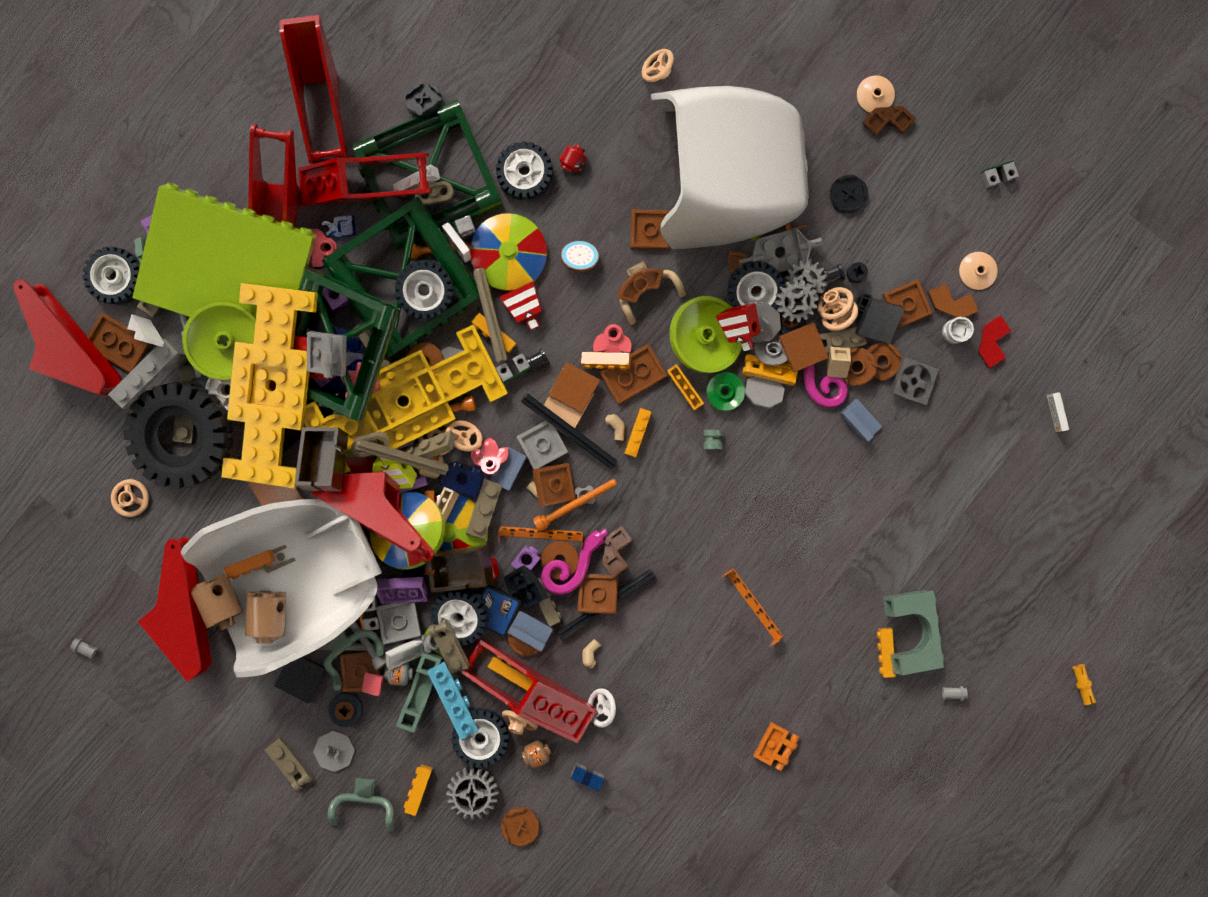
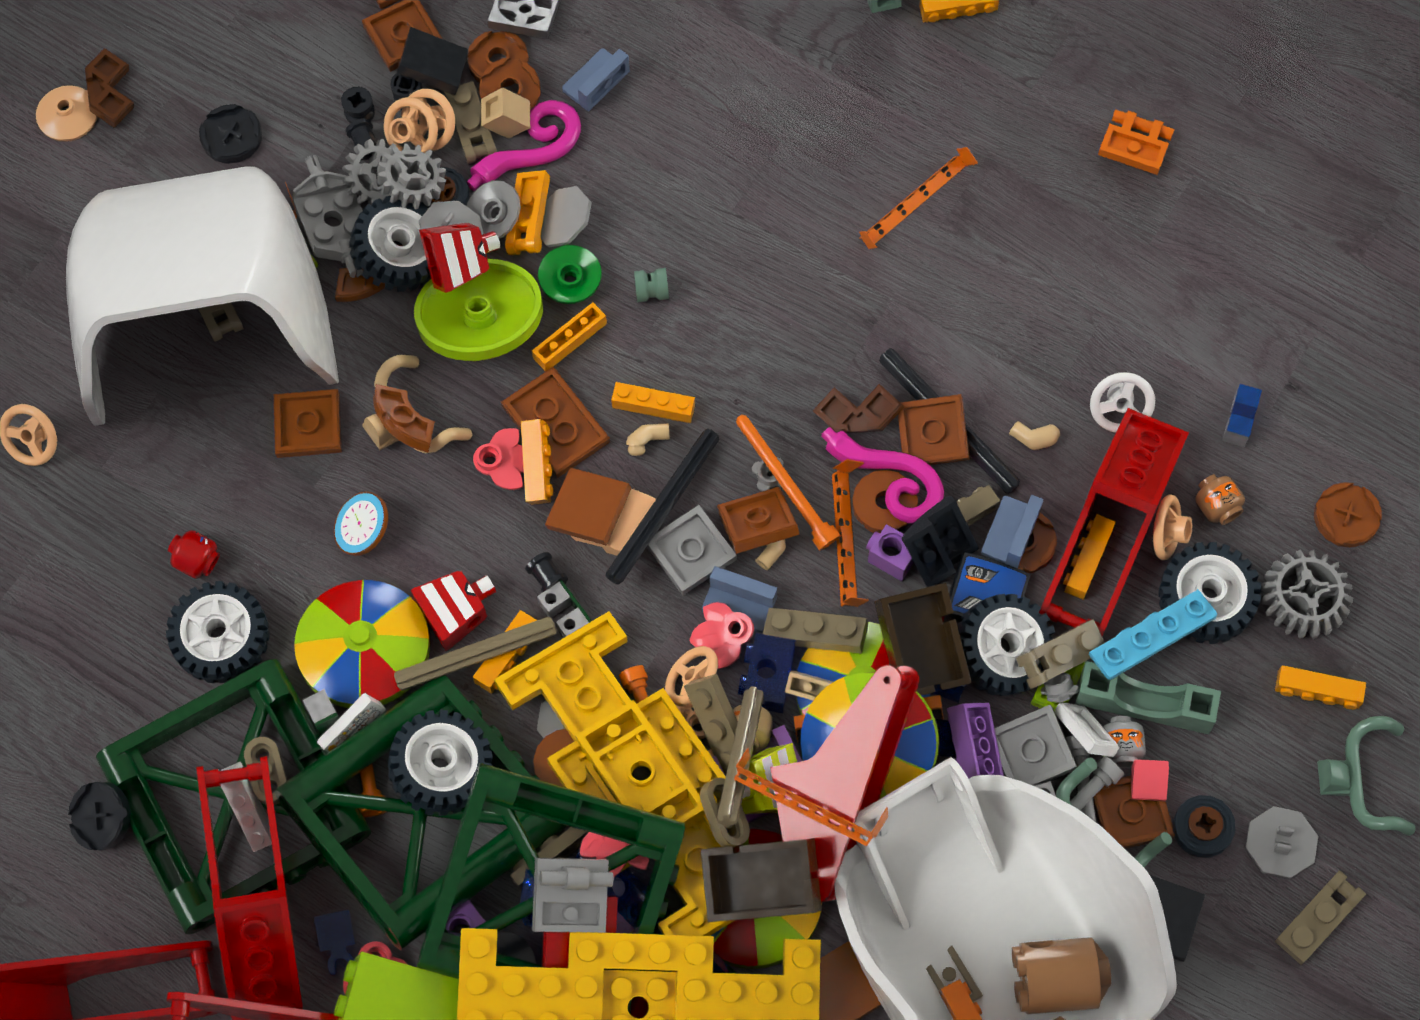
camera: 95 degrees left, 20 degrees down
(355, 491) = (812, 807): none -> orange piece
(803, 347) = (486, 163): dark orange tile -> none

